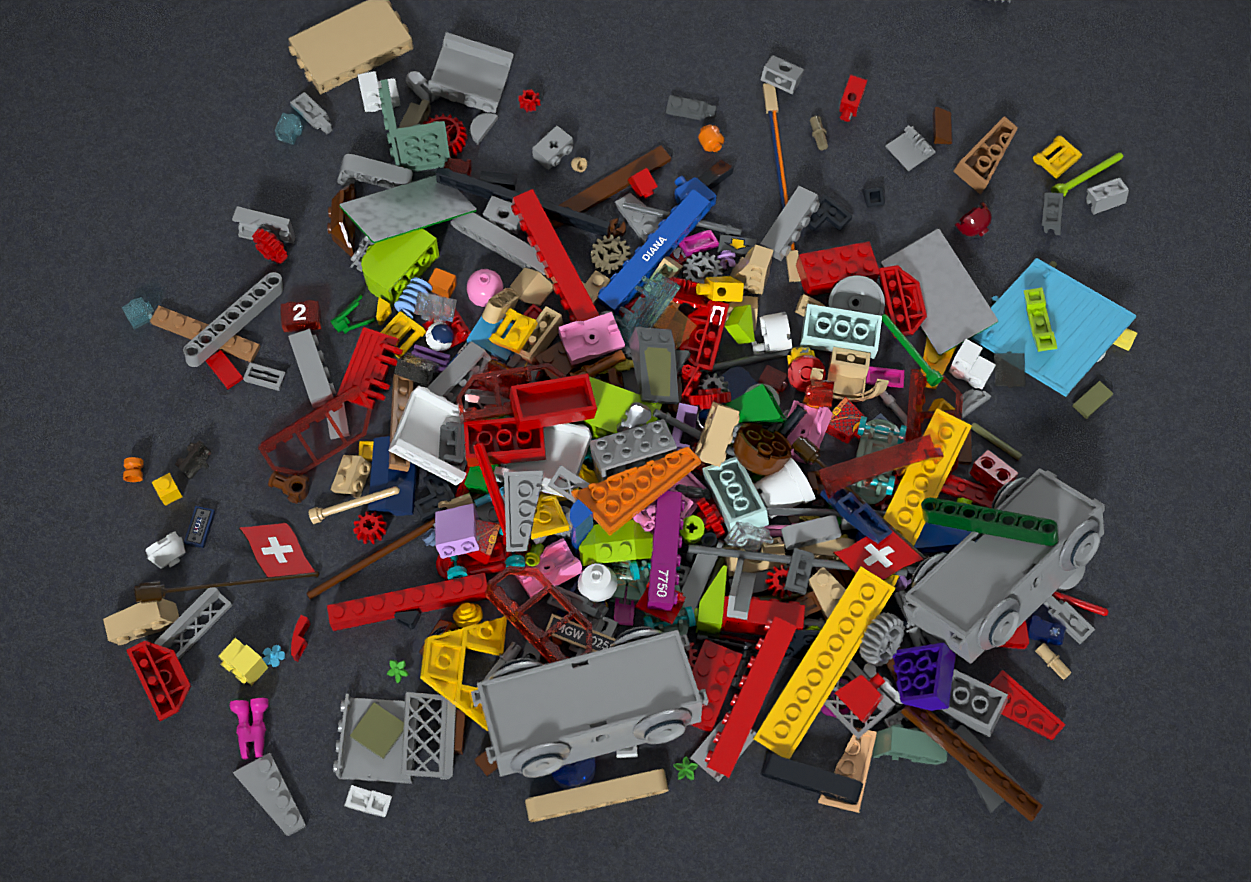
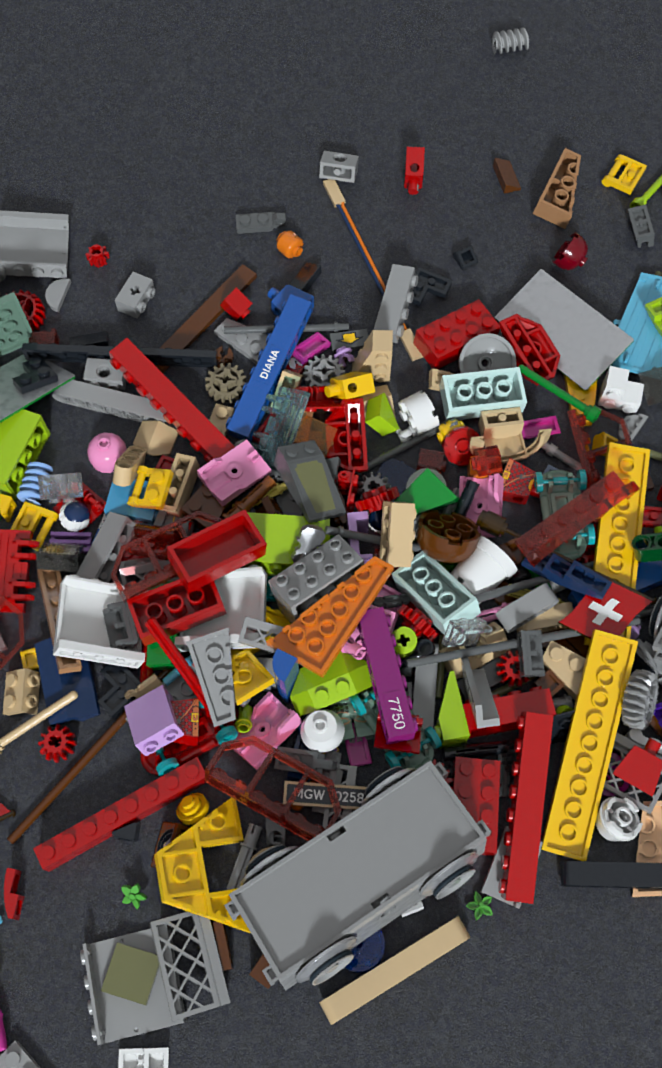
camera: 15 degrees left, 0 degrees up
(429, 537) = (125, 734): sand blue plate -> none
(442, 283) = (61, 459): orange panel -> none
(443, 201) = (37, 376): none -> black plate
(579, 164) = (166, 304): tan hinge -> none
(819, 132) = (392, 211): dark tan axle -> none
(828, 734) = (618, 819): none -> white cone
(910, 148) = (484, 203): light grey hinge -> none

